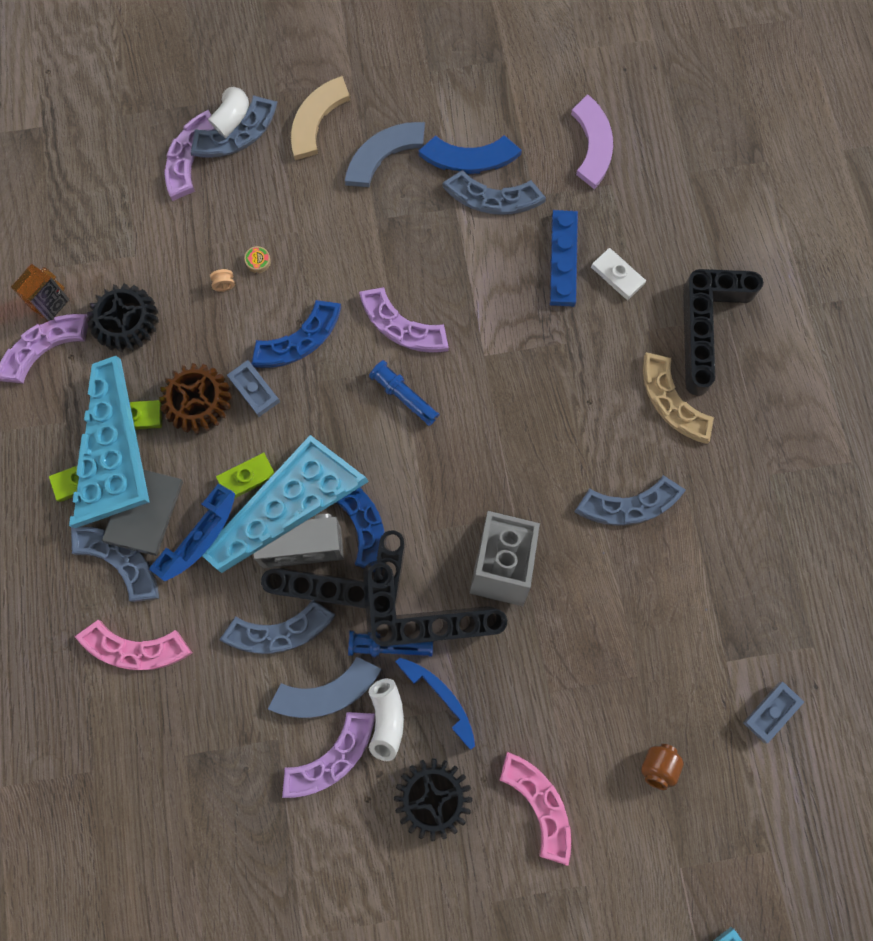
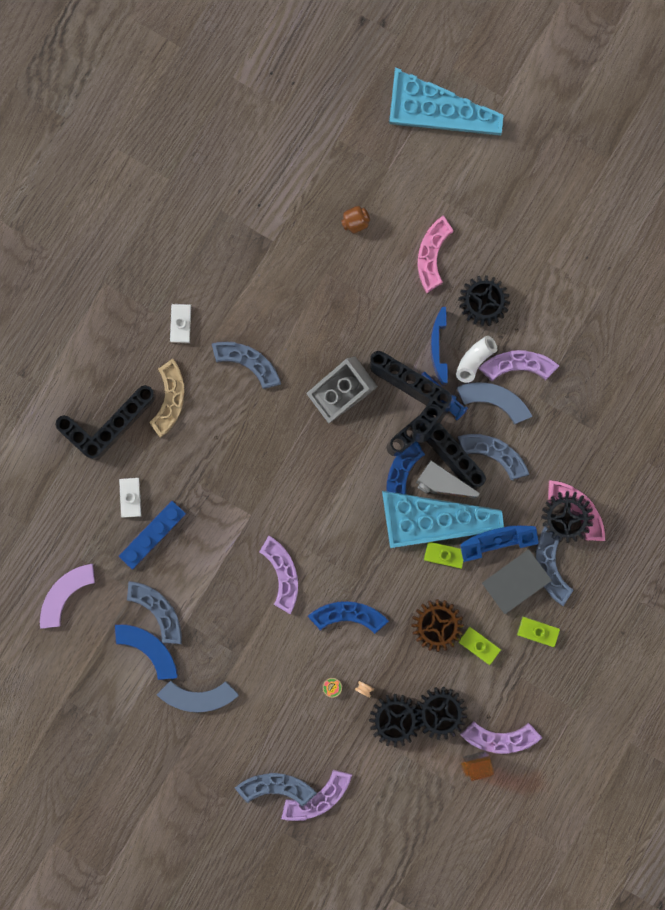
camera: 140 degrees left, 10 degrees up
(109, 450) = (511, 628): medium azure wing -> none
(143, 610) = (567, 533): none -> black gear
(161, 267) = (387, 726): none -> black gear
(230, 112) = (268, 799): white cylinder -> none
(253, 388) = (399, 604): sand blue plate -> none
(310, 114) = (220, 761): tan tile -> none
(395, 385) = (318, 538): blue pin -> none
(736, 484) = (180, 323): none -> white plate
(773, 712) = (274, 197): sand blue plate -> none

